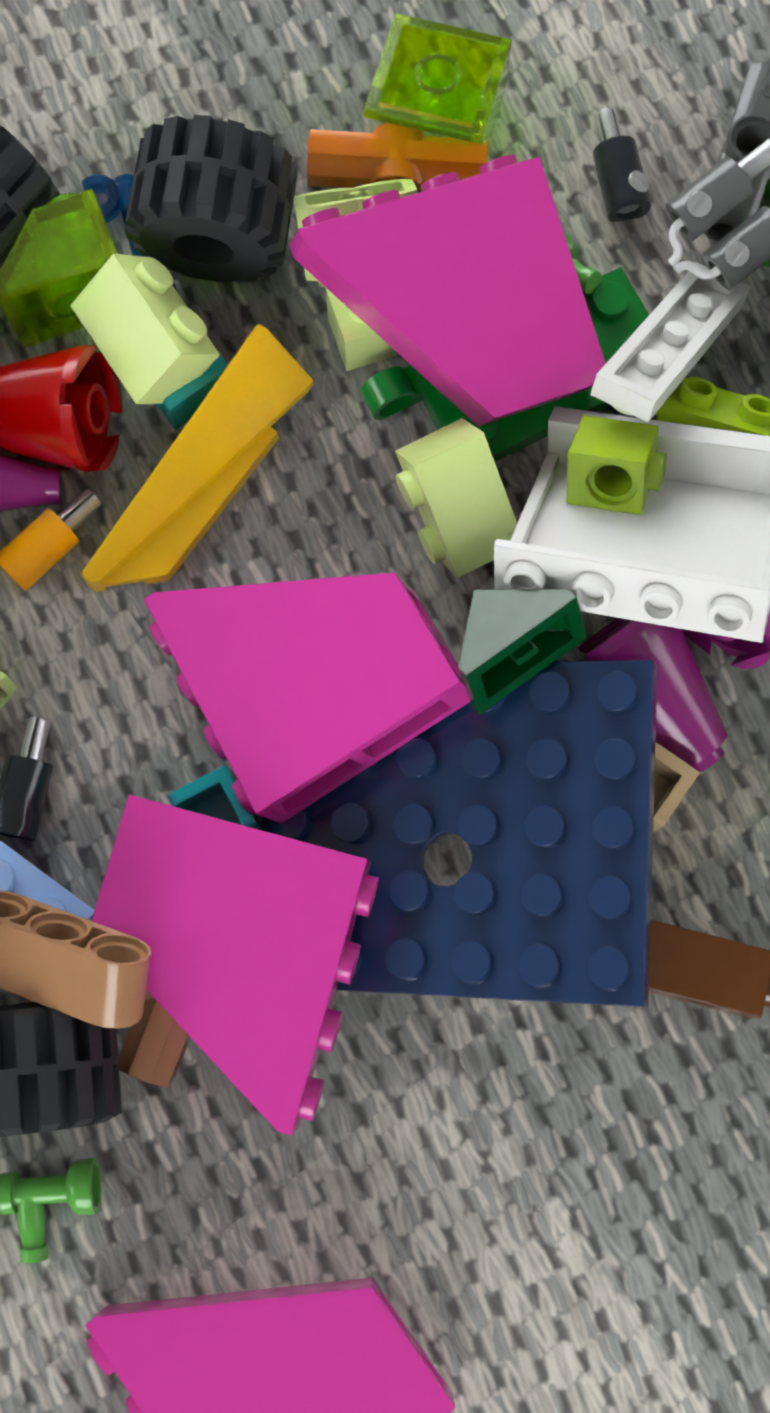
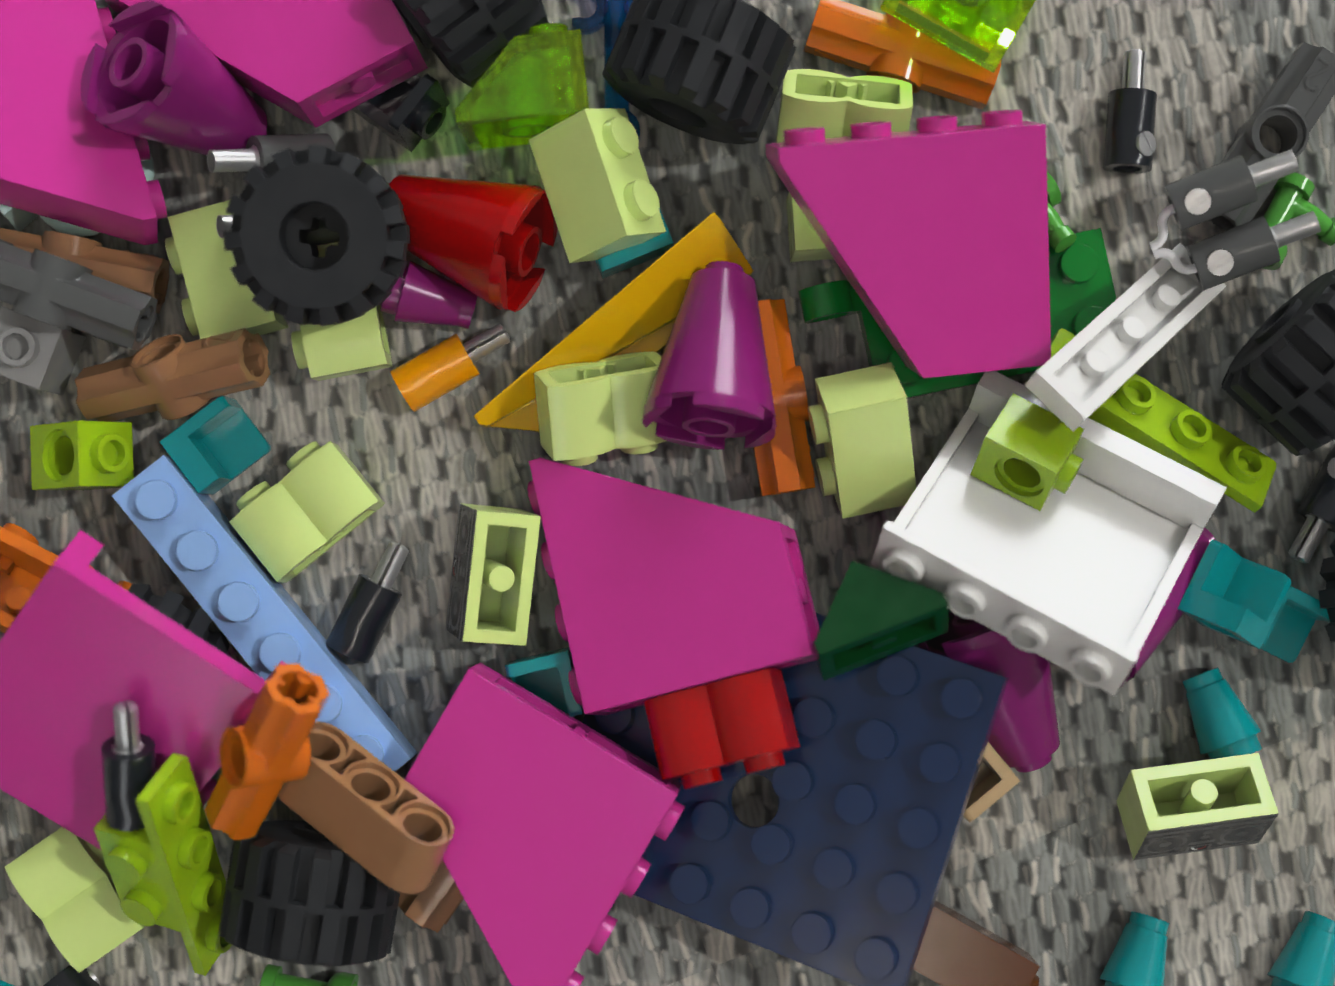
camera: 15 degrees right, 10 degrees up
(135, 714) = (492, 574): none -> yellowish green brick
(204, 533) = (596, 407): none -> yellowish green brick
(297, 465) = (714, 366): none -> magenta cone
(362, 488) = (785, 461): none -> orange piece
(393, 787) = (722, 725): none -> red brick

